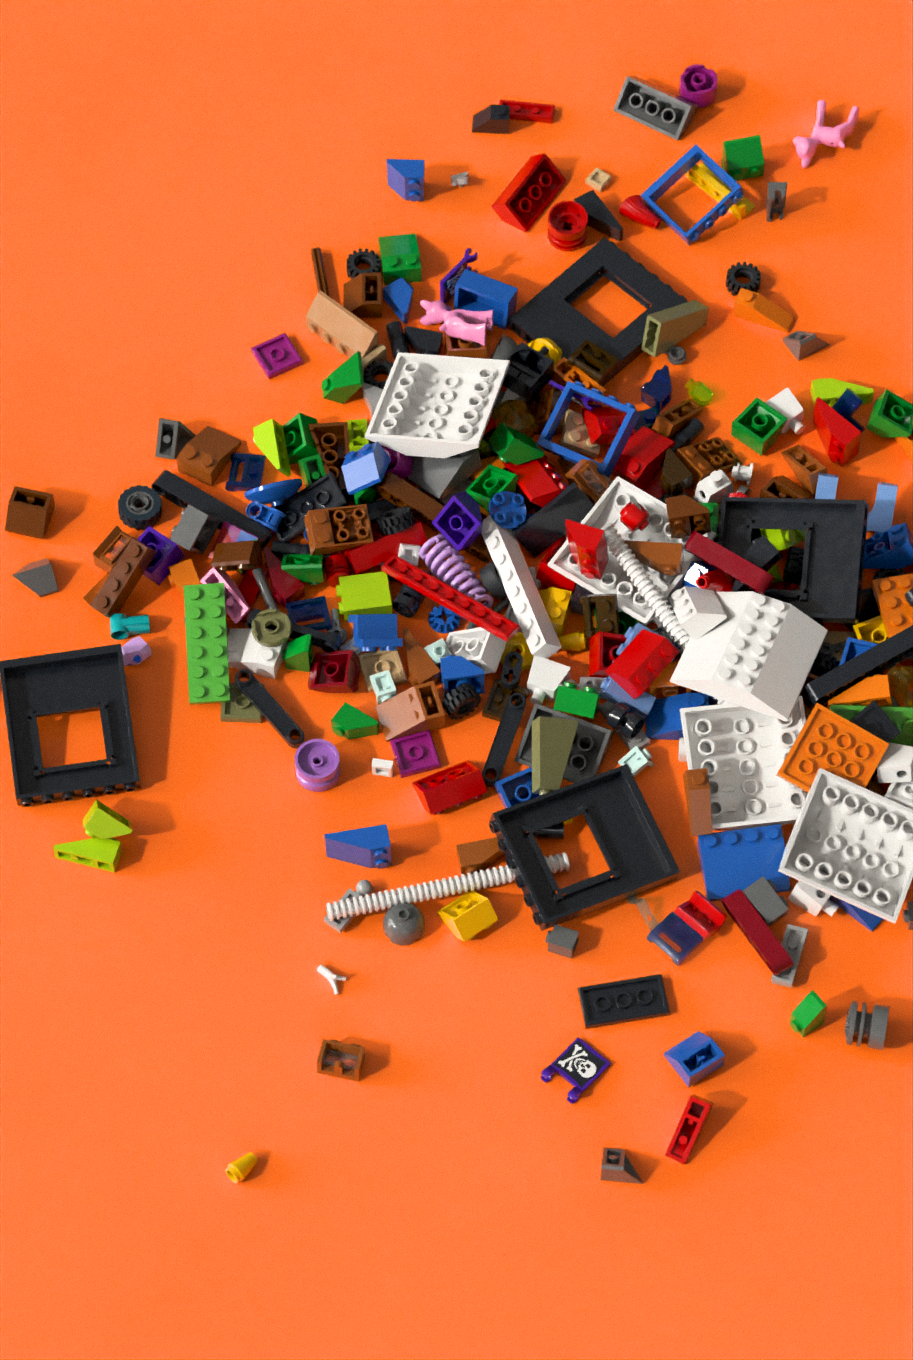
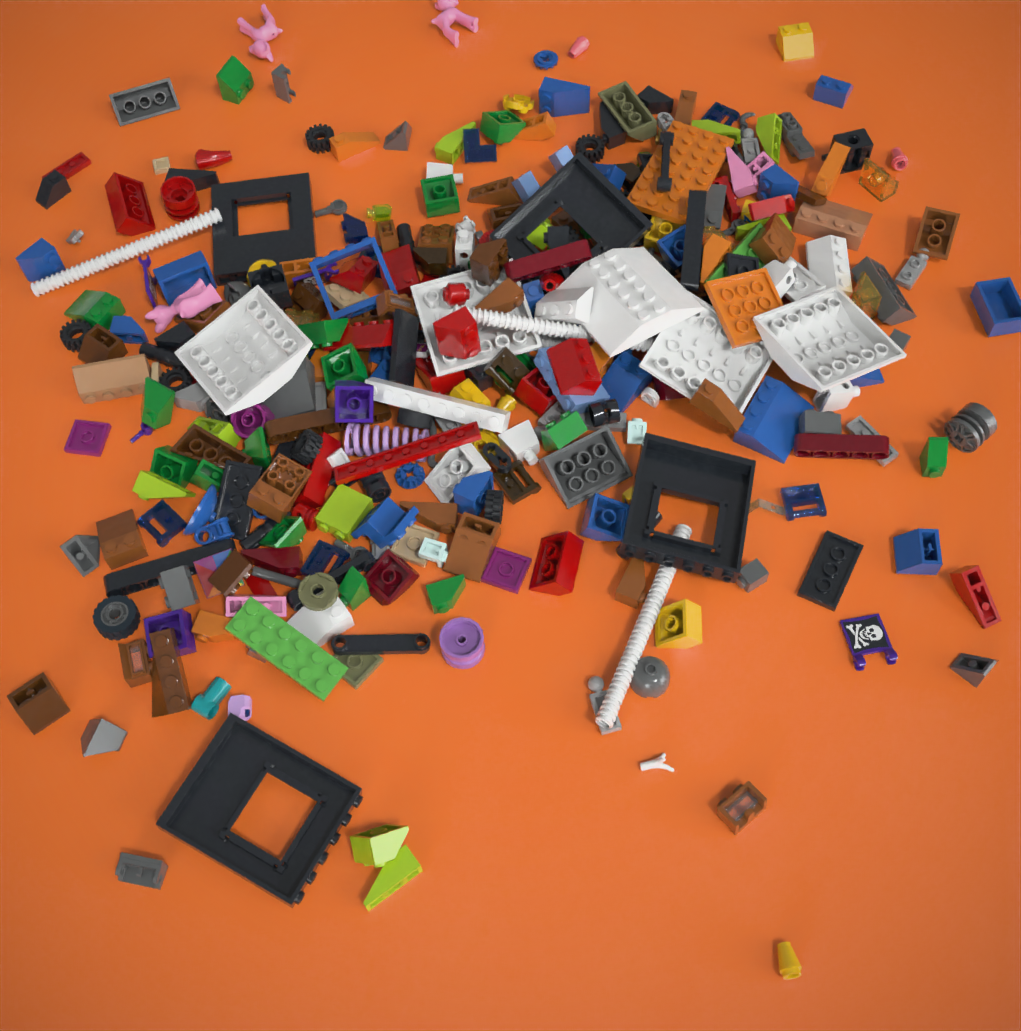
camera: 50 degrees left, 0 degrees up
(318, 391) = (146, 430): none -> dark purple hand
(319, 270) = (51, 365): reddish brown axle -> none
(361, 846) = (565, 658): blue slope -> none
(364, 467) = (247, 434): slope -> none
(382, 767) = (501, 599): white tile -> none
(437, 650) = (436, 493): light aqua bracket -> none
(475, 233) = (126, 252): none -> white piece
(504, 739) = (548, 499): black piece -> none
(508, 509) = (372, 367): blue dish -> none
(550, 752) = (597, 474): olive slope -> none
(596, 357) = (300, 247): dark brown plate -> none
(672, 325) = (318, 192): slope -> none
(673, 174) = (232, 93): blue window -> none
(698, 85) = (155, 67): magenta brick -> none
(701, 915) = (798, 471): red bracket -> none
(714, 187) = (240, 110): yellow panel -> none
(836, 433) = (484, 159): red slope -> none

